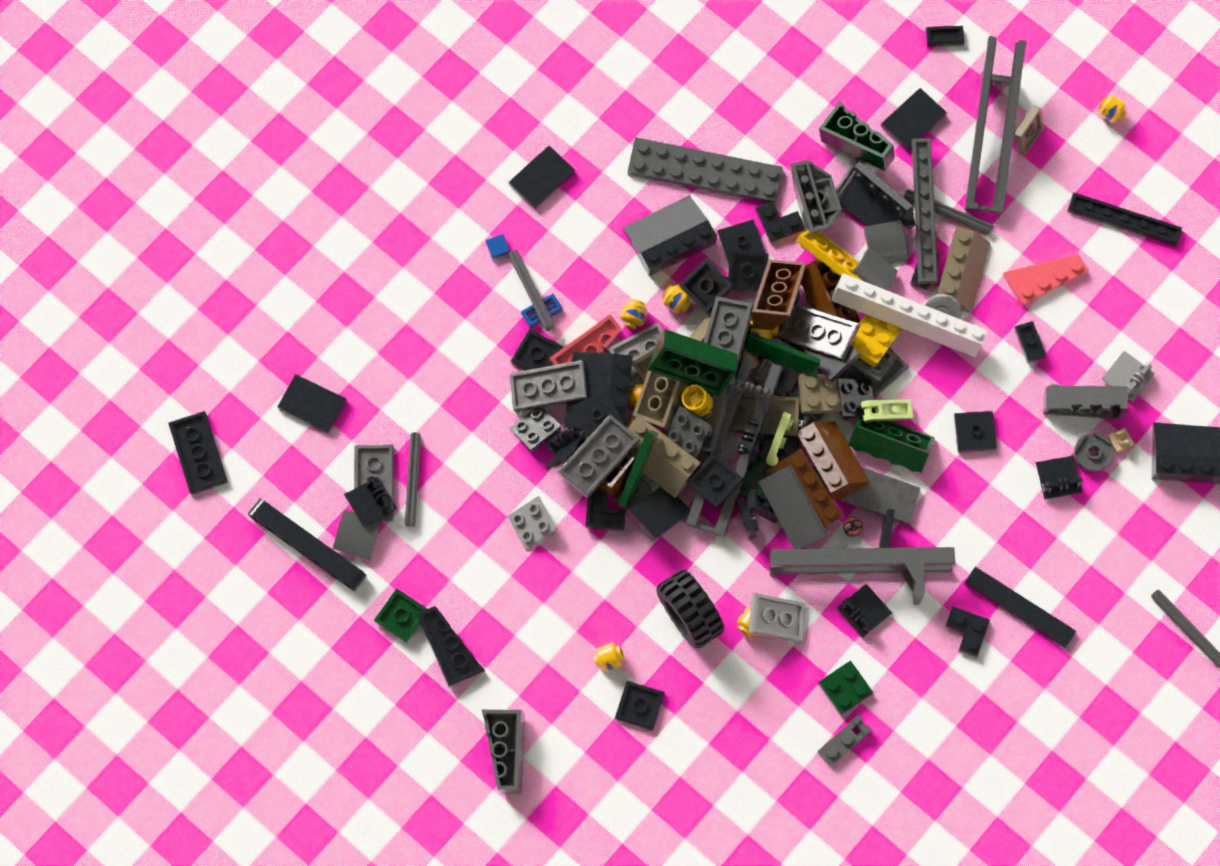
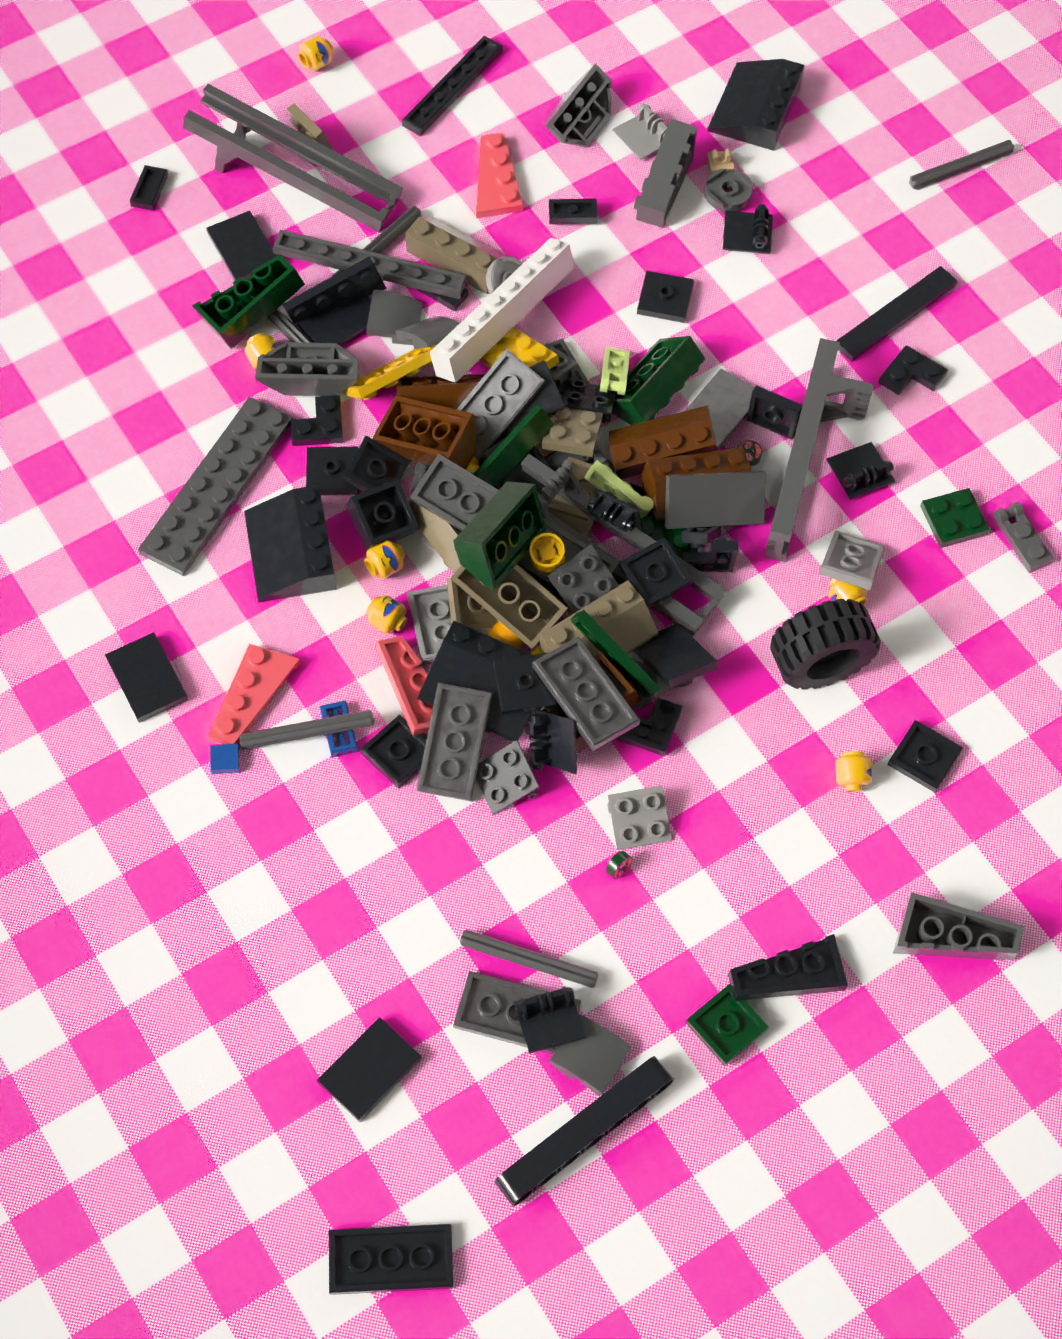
camera: 75 degrees left, 10 degrees down
(493, 518) = (619, 864): none -> tile
(558, 247) = (252, 688): none -> coral wing
(824, 160) = (259, 345): none -> yellow head
(1126, 320) = (582, 109): none -> dark grey wedge

